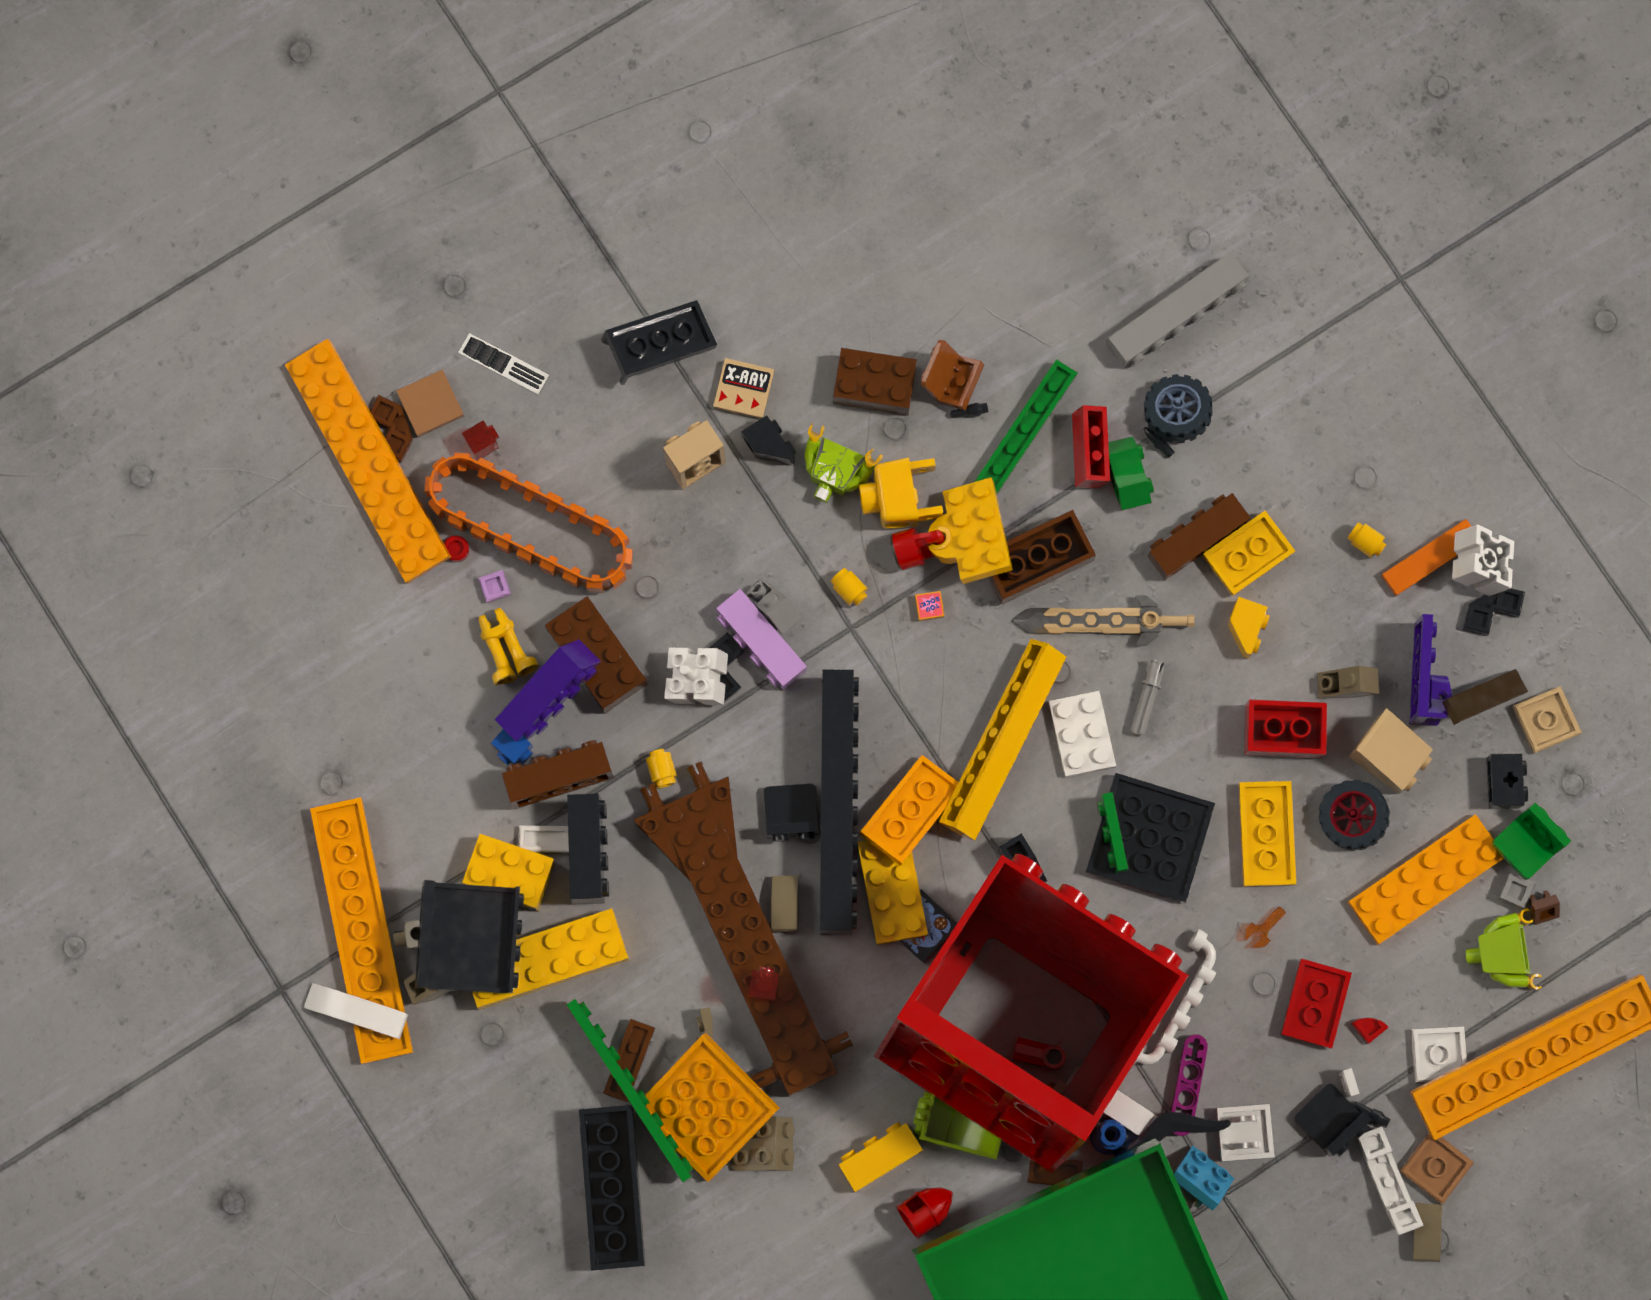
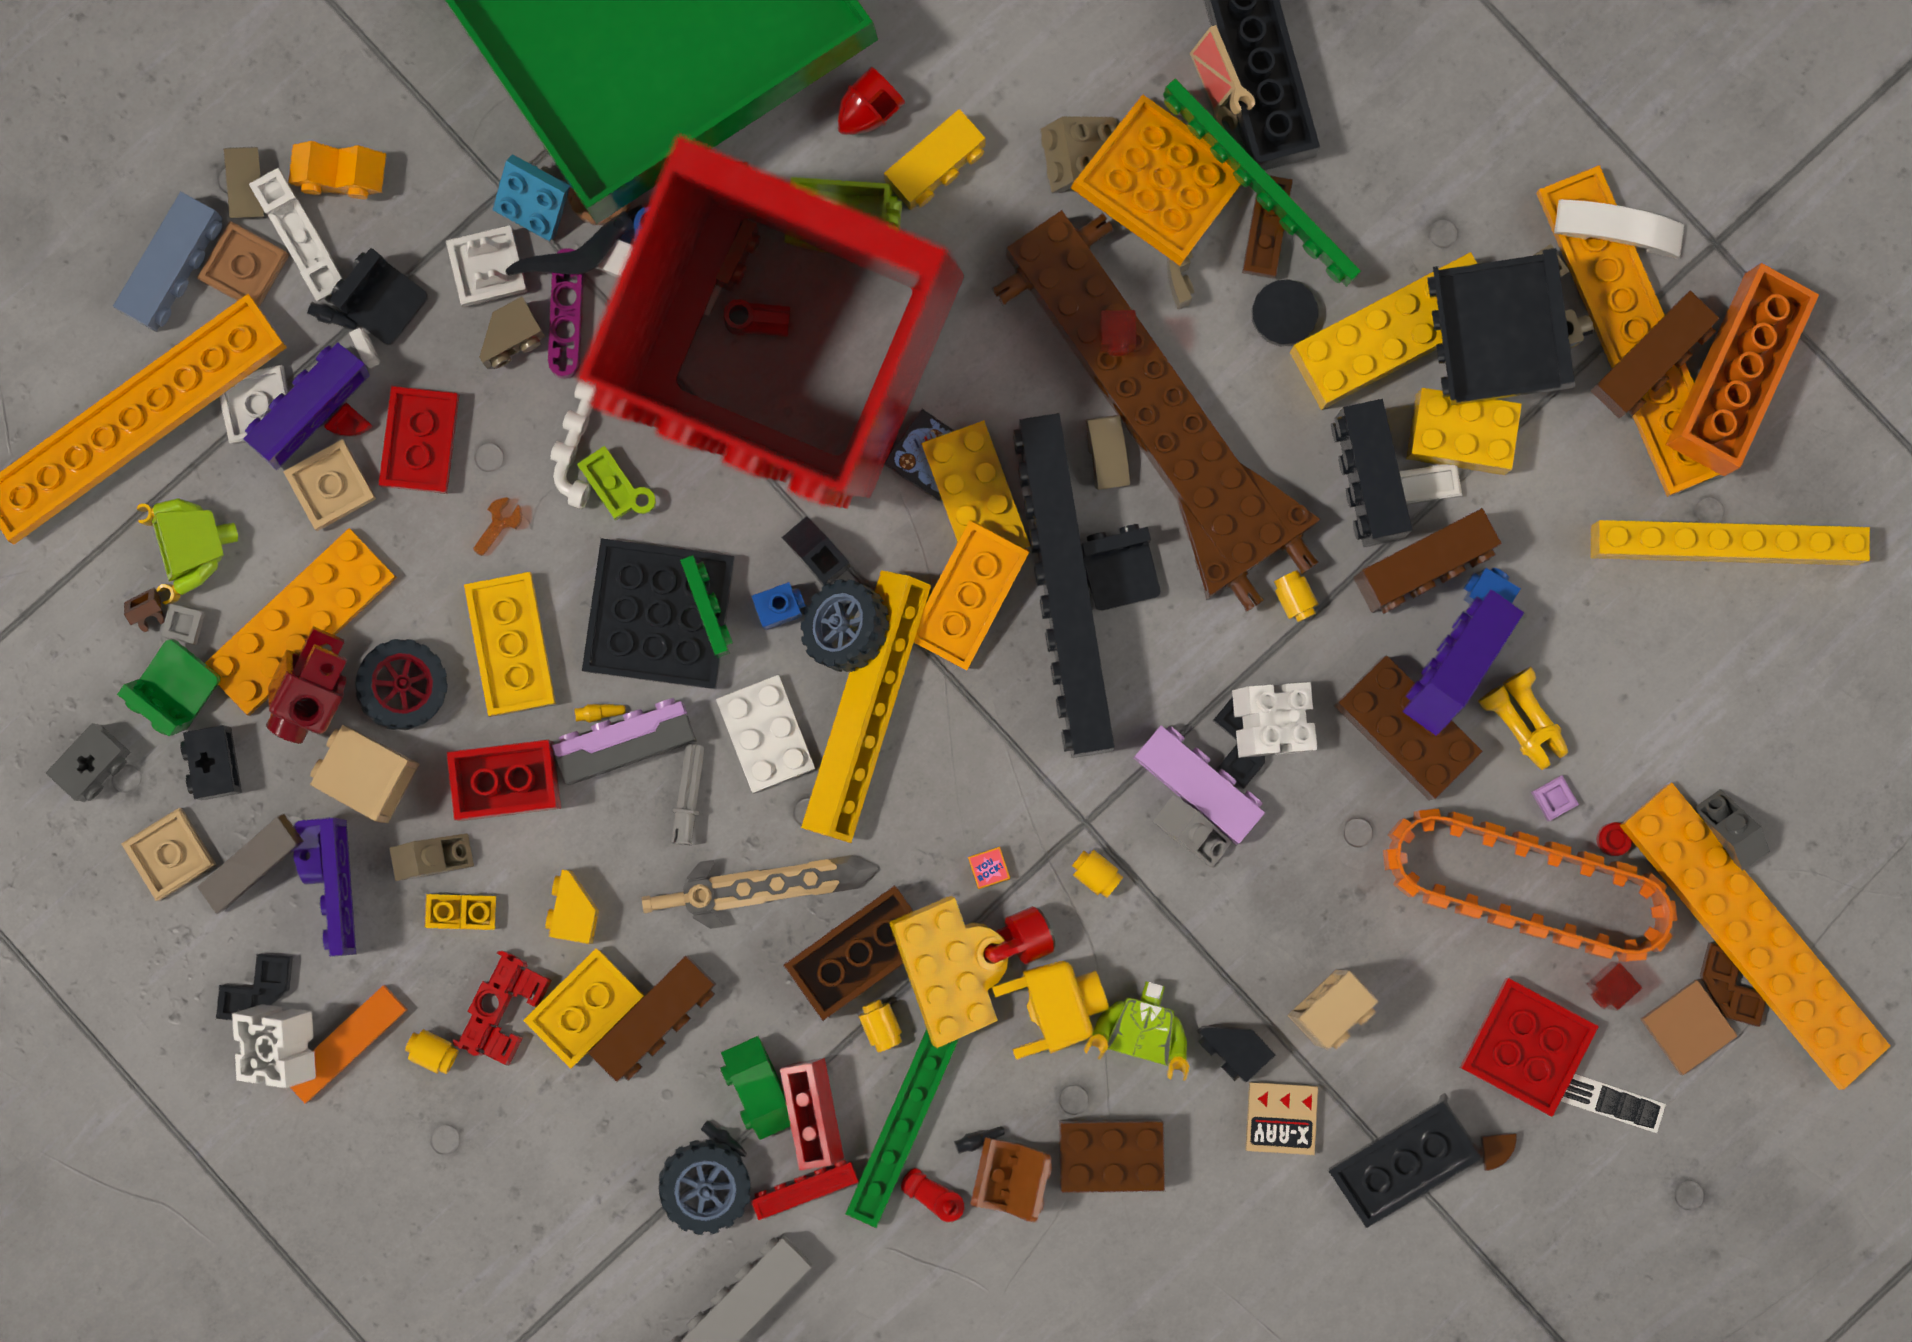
camera: 170 degrees right, 5 degrees up
(286, 880) = (1742, 370): none -> orange brick
(323, 752) = (1730, 542): none -> yellow brick
(351, 903) = (1655, 354): none -> reddish brown brick
(368, 540) = (1733, 829): none -> dark grey slope
(551, 408) = (1529, 1047): none -> red plate
(589, 340) = (1497, 1149): none -> reddish brown tile
(628, 990) = (1284, 312): none -> black tile
(646, 1179) = (1220, 78): none -> flag
(1004, 371) = (938, 1199): none -> red piece
(1028, 806) = (828, 612): none -> black wheel
(1029, 503) = (880, 1025): none -> yellow brick
(1057, 828) = (778, 605): none -> blue brick
(1105, 395) = (804, 1189): none -> red piece
(1169, 935) = (613, 485): none -> lime hinge
(1190, 743) = (625, 742): none -> piece
(1209, 771) = (596, 712): none -> yellow piece
(1233, 1077) = (509, 332): none -> dark tan slope
(1304, 585) = (505, 978): none -> red piece
(1332, 640) = (460, 912): none -> yellow slope
(1352, 1229) = (334, 170): none -> light orange brick
(1389, 980) = (329, 485): none -> tan plate
(1400, 1041) = (306, 405): none -> dark purple slope
(1416, 812) = (308, 676): none -> dark red piece
(1494, 1177) = (169, 262): none -> sand blue brick
(1613, 790) = (71, 768): none -> dark grey brick

